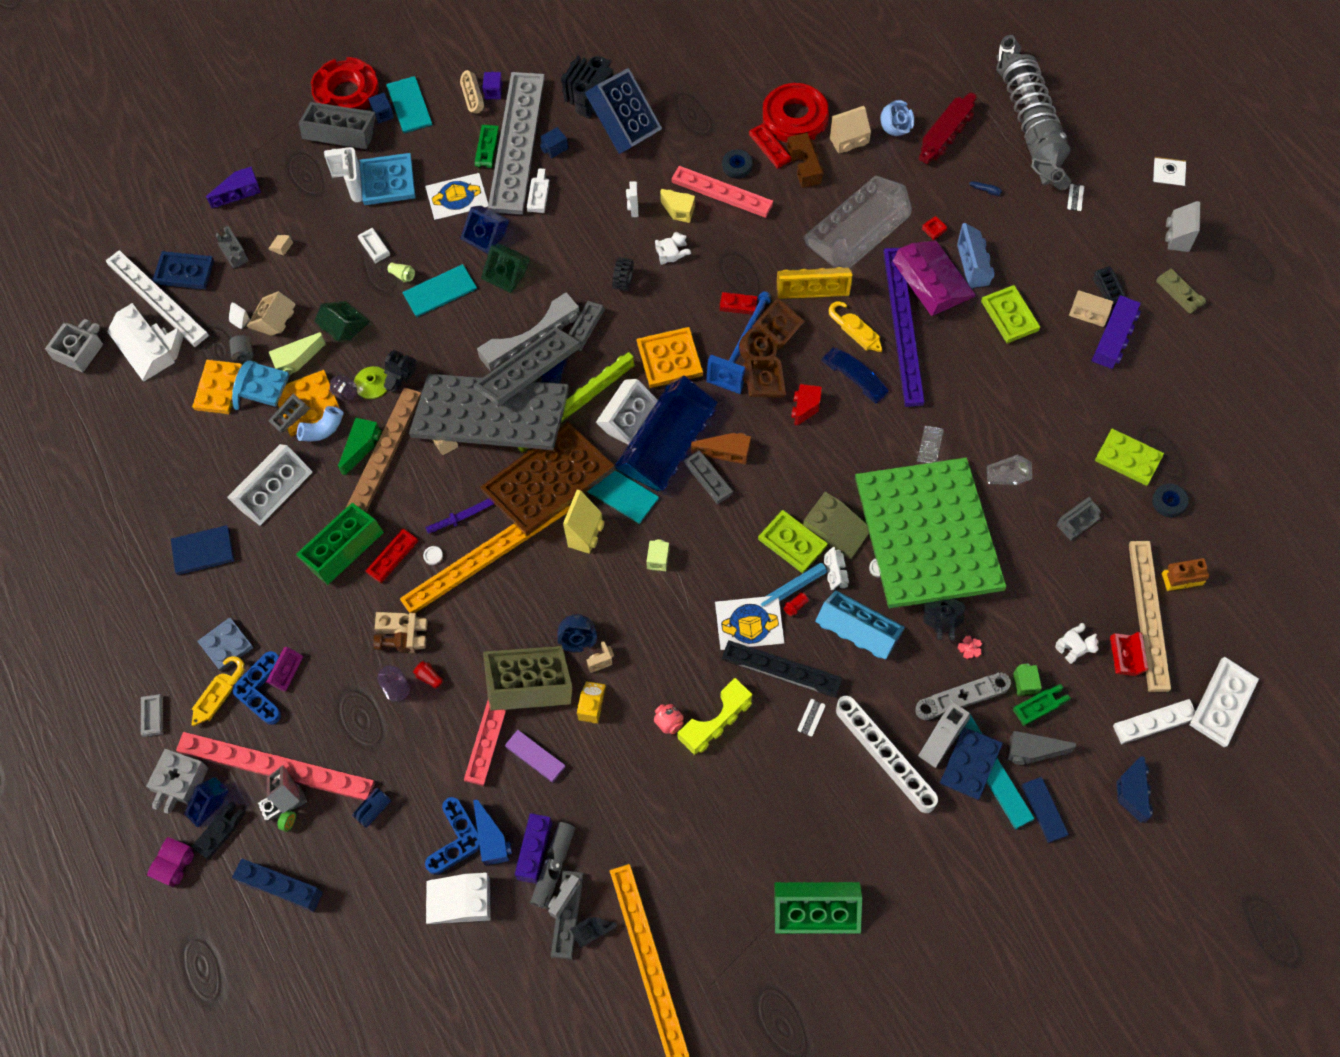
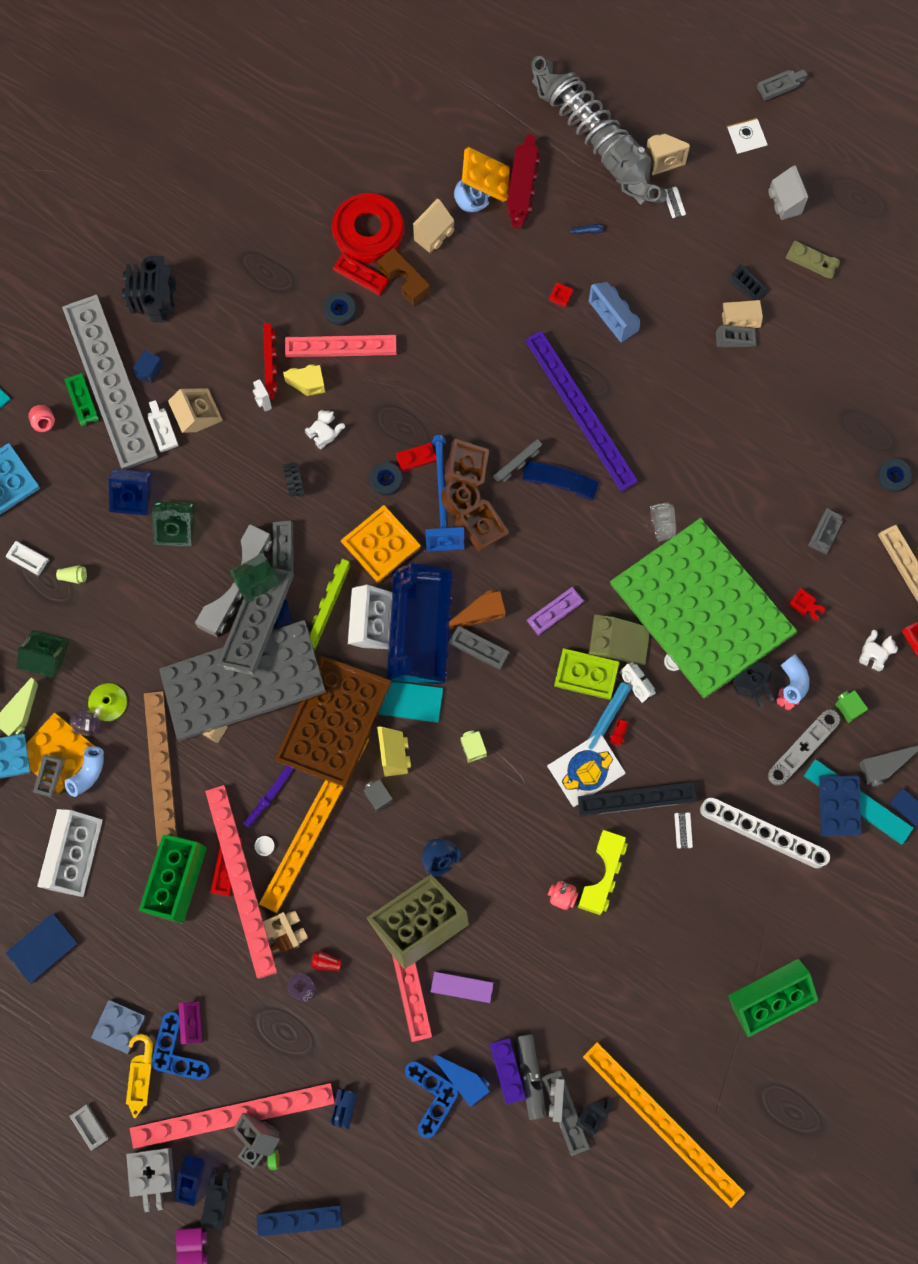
camera: 30 degrees left, 10 degrees up
(359, 443) = (133, 769): green slope -> none
(393, 573) = (241, 882): none -> coral plate
(398, 369) = (130, 681): black hinge -> none
(439, 290) = (119, 576): teal piece -> none
(446, 145) = (41, 418): none -> coral head
(456, 195) = (80, 466): sticker -> none
(458, 899) = (464, 1149): white slope -> none
(471, 92) = (33, 346): tan plate -> none
(492, 85) = (50, 329): dark purple brick -> none
(544, 333) = (254, 577): none -> clear green slope
(552, 557) = (377, 795): none -> dark grey brick
(573, 189) = (194, 409): none -> tan slope
(591, 702) = (485, 912): yellow slope -> none
(600, 661) = (472, 872): tan bracket -> none
(623, 110) = (203, 304): dark blue slope -> none
(653, 182) = (270, 368): none -> red plate
(695, 305) = (390, 470): none -> black bush
(793, 478) = (555, 611): none -> medium lavender tile
(807, 402) = (532, 531): red slope -> none
(814, 283) = (477, 404): yellow slope -> none
(825, 341) = (518, 461): none -> dark grey plate
(856, 328) = (534, 430): yellow plate -> none
(859, 624) = (685, 724): dark azure slope -> none
(860, 222) = (489, 322): clear windscreen -> none
(916, 107) = (486, 174): none -> light orange plate
(932, 276) = (585, 348): magenta slope -> none
(944, 734) = (806, 792): light grey slope -> none
(988, 631) = (798, 679): none -> light blue cylinder
(1010, 314) = (672, 354): lime plate -> none
(1010, 471) = (745, 514): clear slope -> none
(1028, 571) = (804, 602): none -> red plate
(1040, 705) = (871, 724): green hinge -> none
(1073, 316) = (724, 332): none -> dark grey slope
(1086, 152) = (666, 153): none -> tan slope
(1116, 332) = (775, 329): dark purple brick -> none
(1129, 457) = (841, 449): lime plate -> none
(1221, 141) = (781, 83): none -> dark grey hinge

